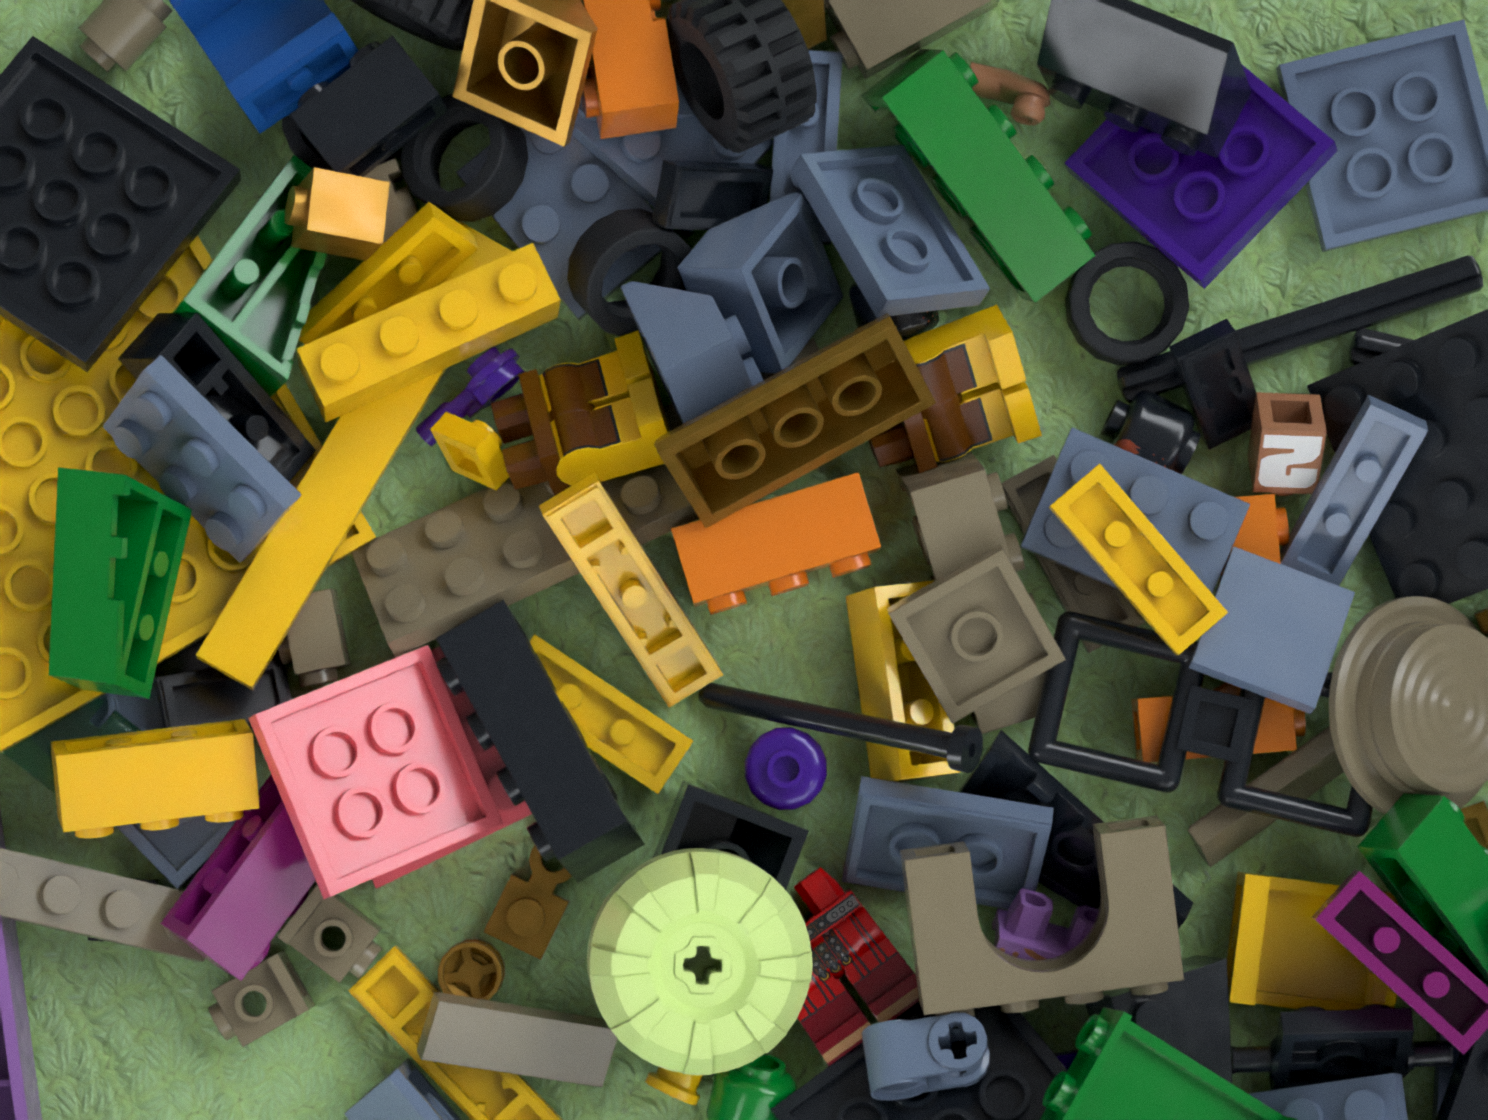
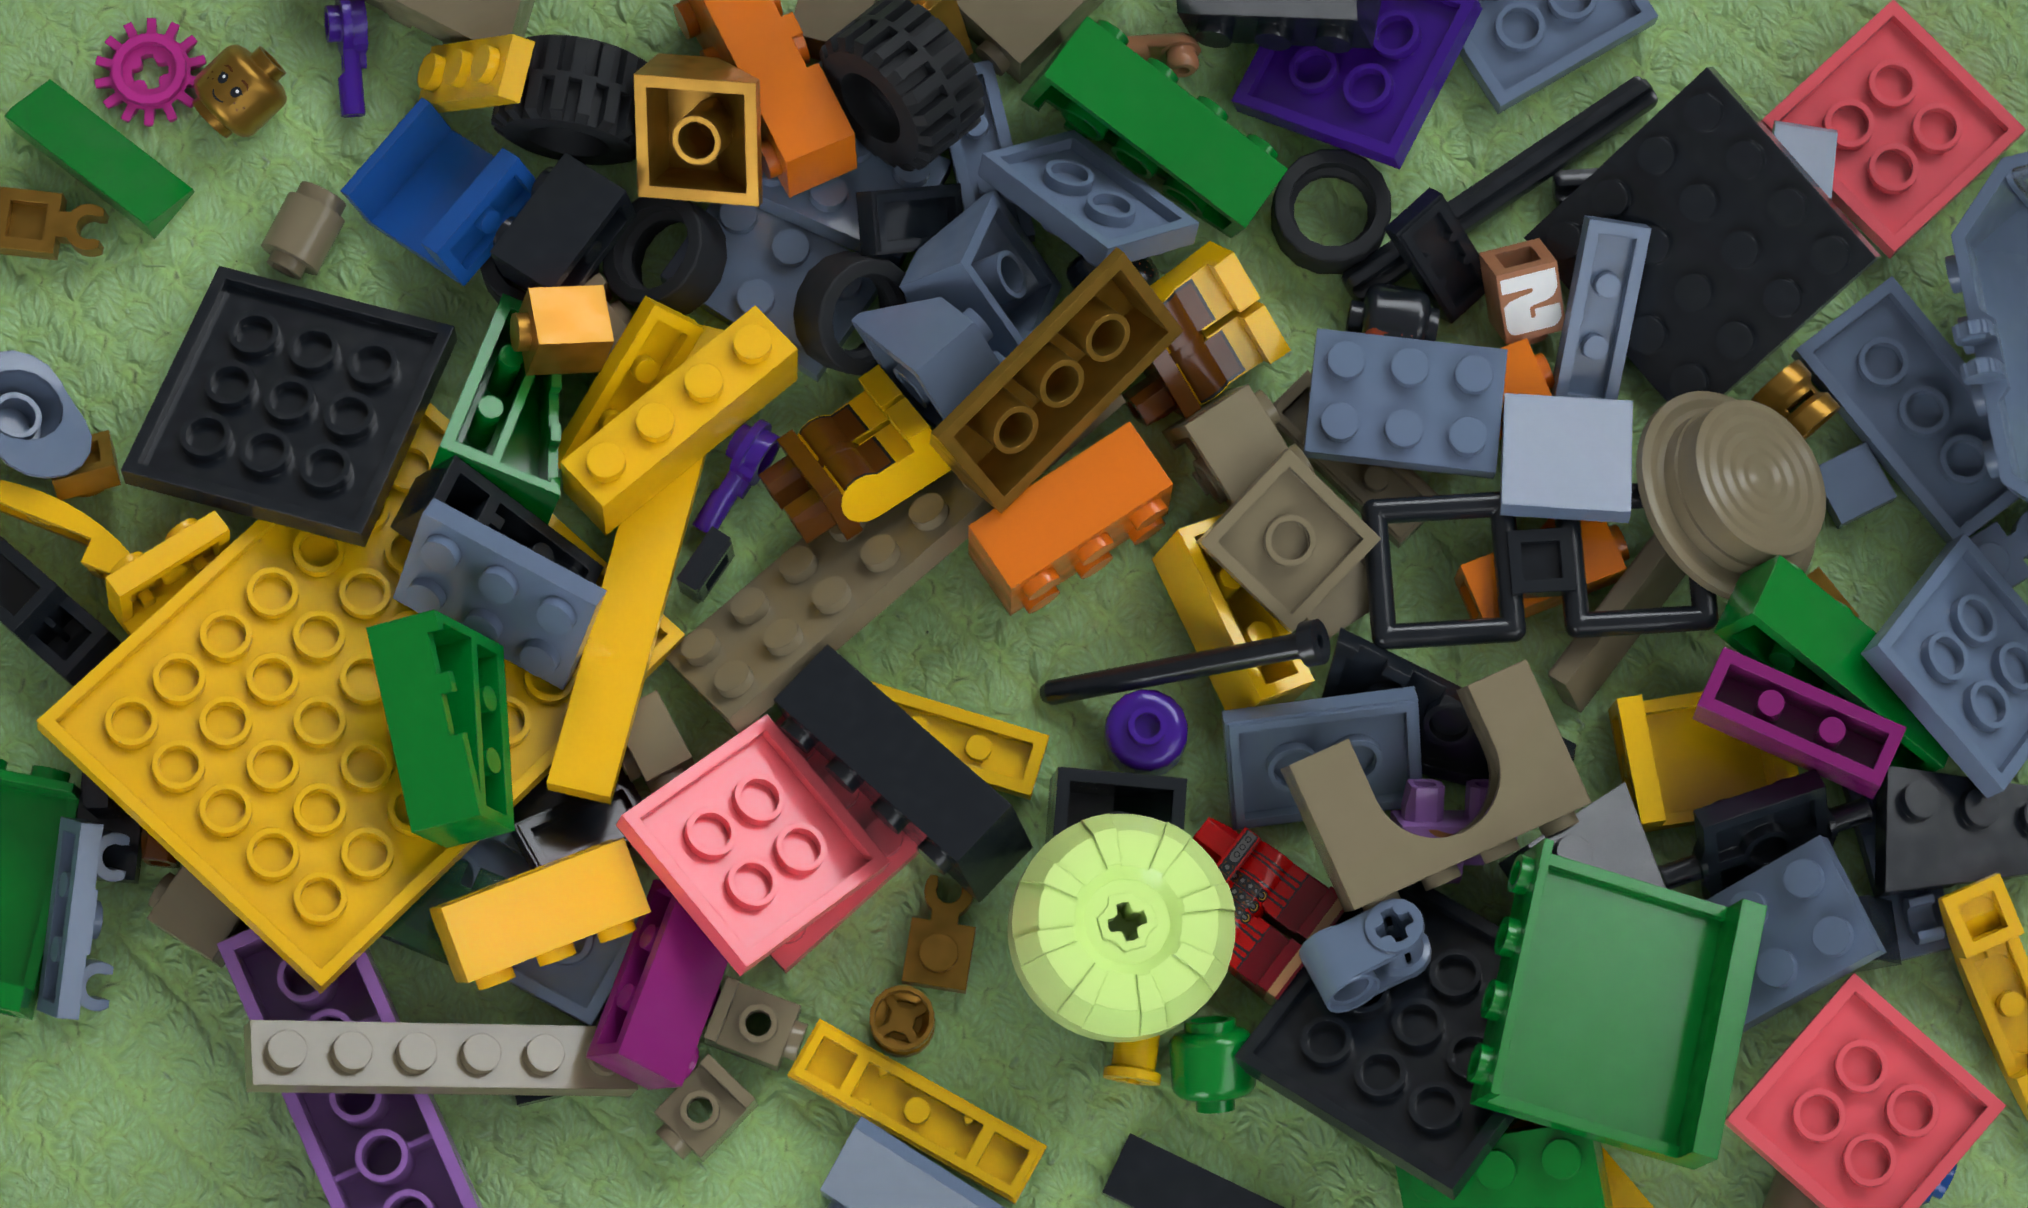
camera: 15 degrees left, 10 degrees down
(415, 475) = (706, 565): none -> black tile
(471, 449) = (753, 524): yellow plate -> none
(516, 1039) = (967, 1068): dark tan tile -> none
(630, 589) = (946, 603): yellow plate -> none
(1138, 559) = (1419, 424): yellow plate -> none

